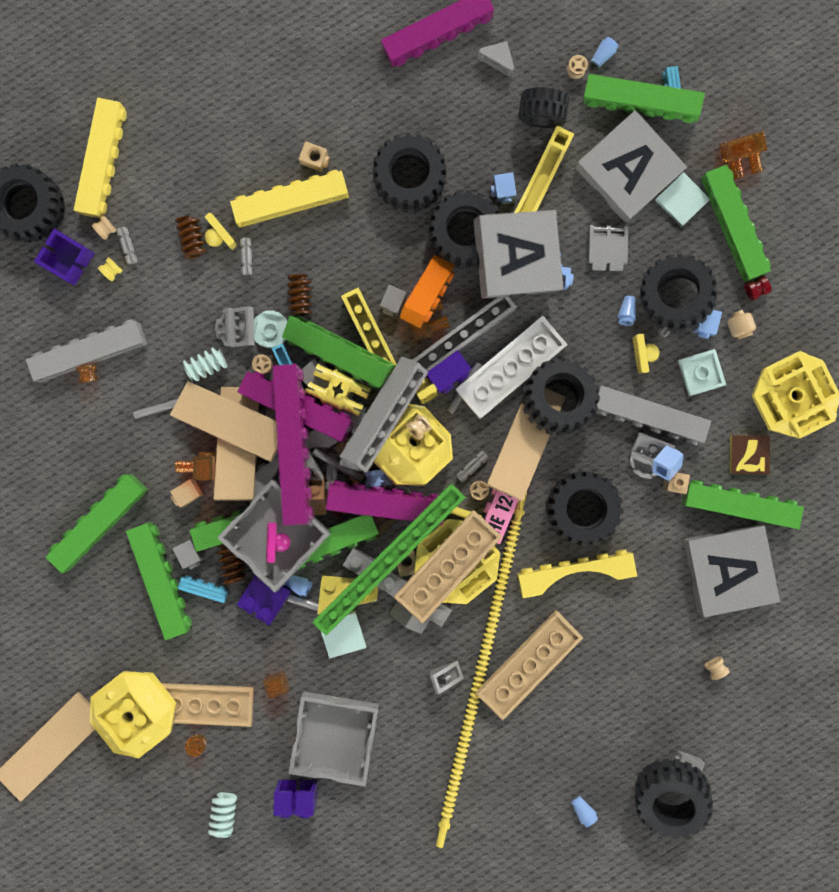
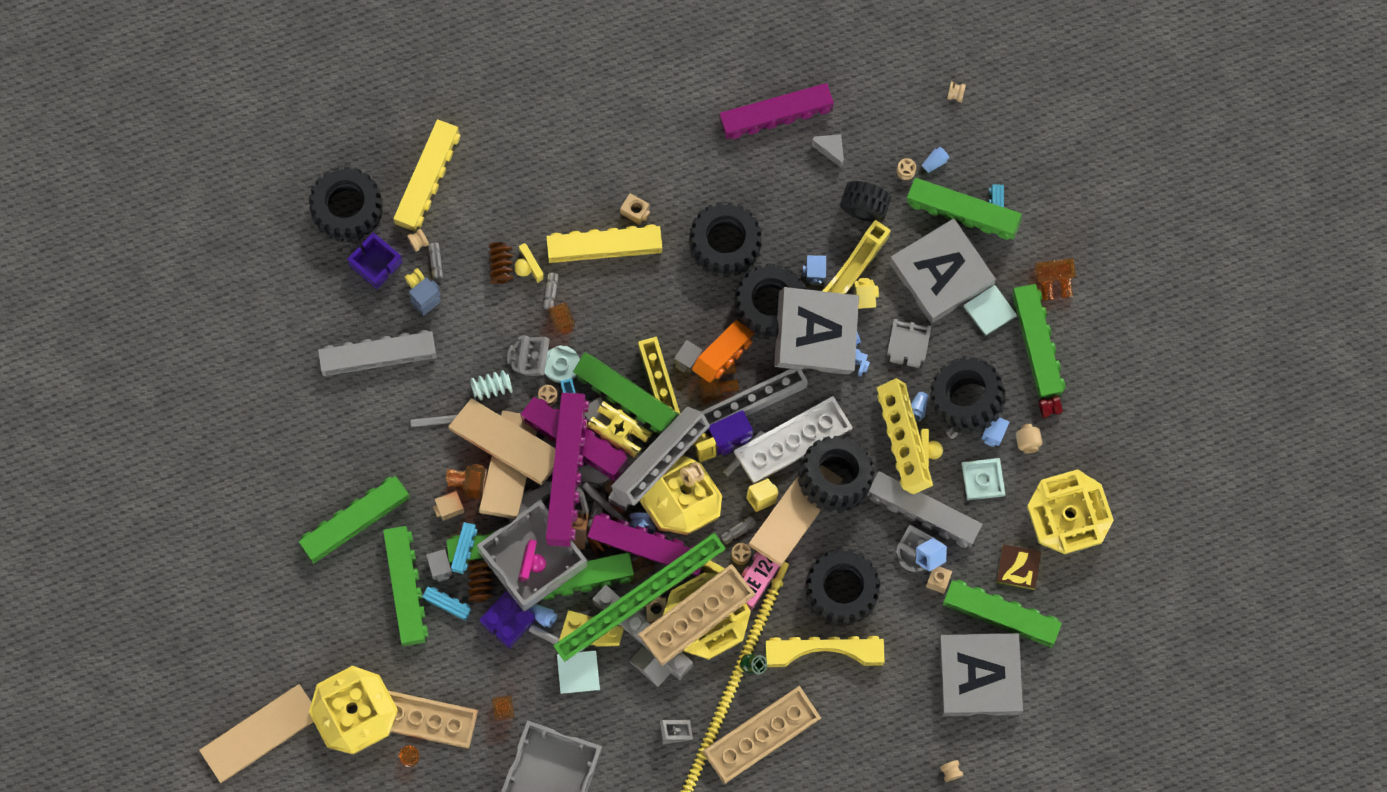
camera: 10 degrees right, 15 degrees down
(87, 373) = (373, 374): clear orange wheel -> none
(121, 285) = (425, 296): none -> sand blue brick
(206, 539) = (463, 548): none -> medium azure piece
(261, 283) = (561, 318): none -> clear orange brick
(299, 294) = (595, 335): reddish brown piece -> none
(490, 428) = (762, 495): none -> light yellow brick
(512, 600) = (753, 664): none -> dark green wheel
(559, 200) = (867, 293): none -> light yellow brick
(623, 334) = (920, 477): none -> light yellow brick

